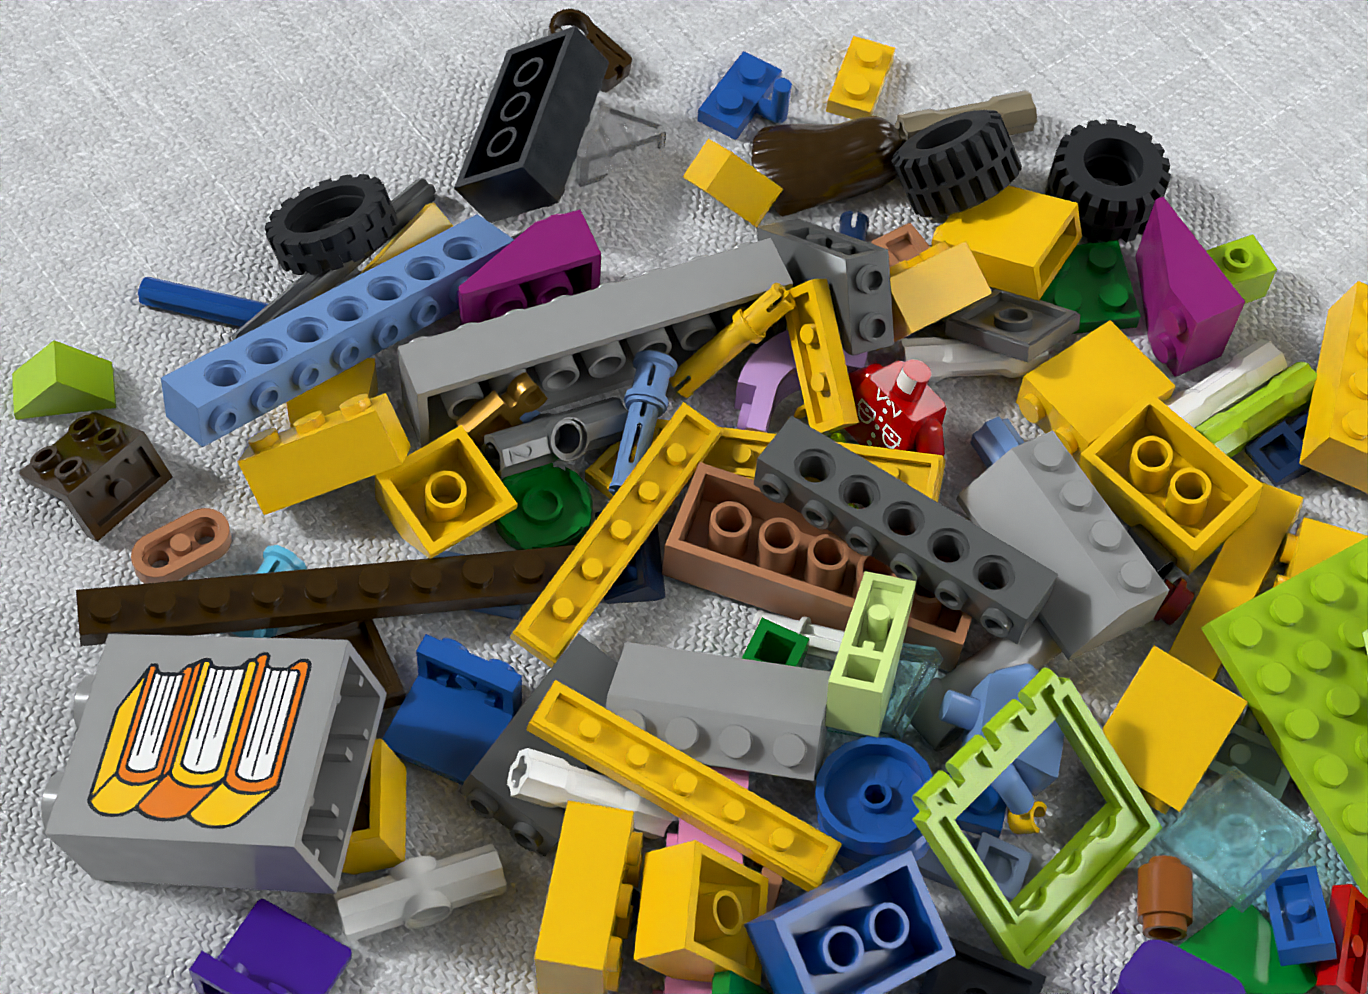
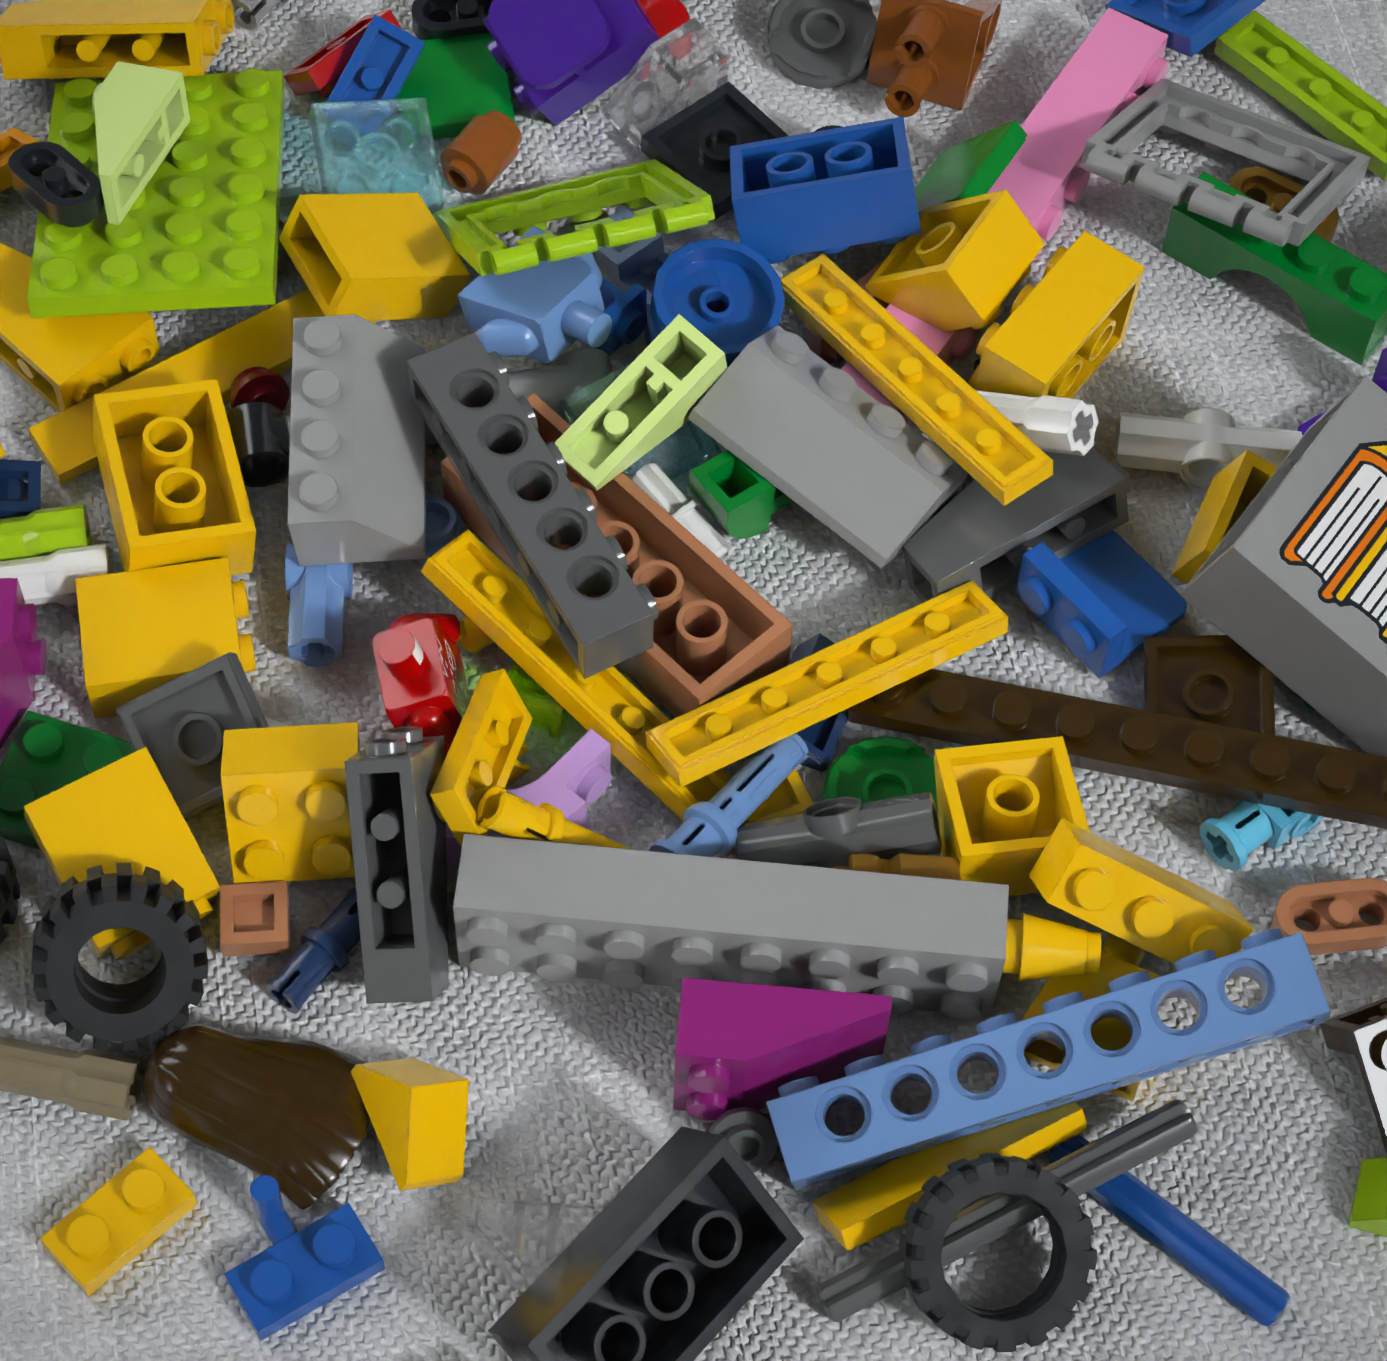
camera: 150 degrees left, 0 degrees up
(385, 380) = (1049, 949): none -> yellow cone

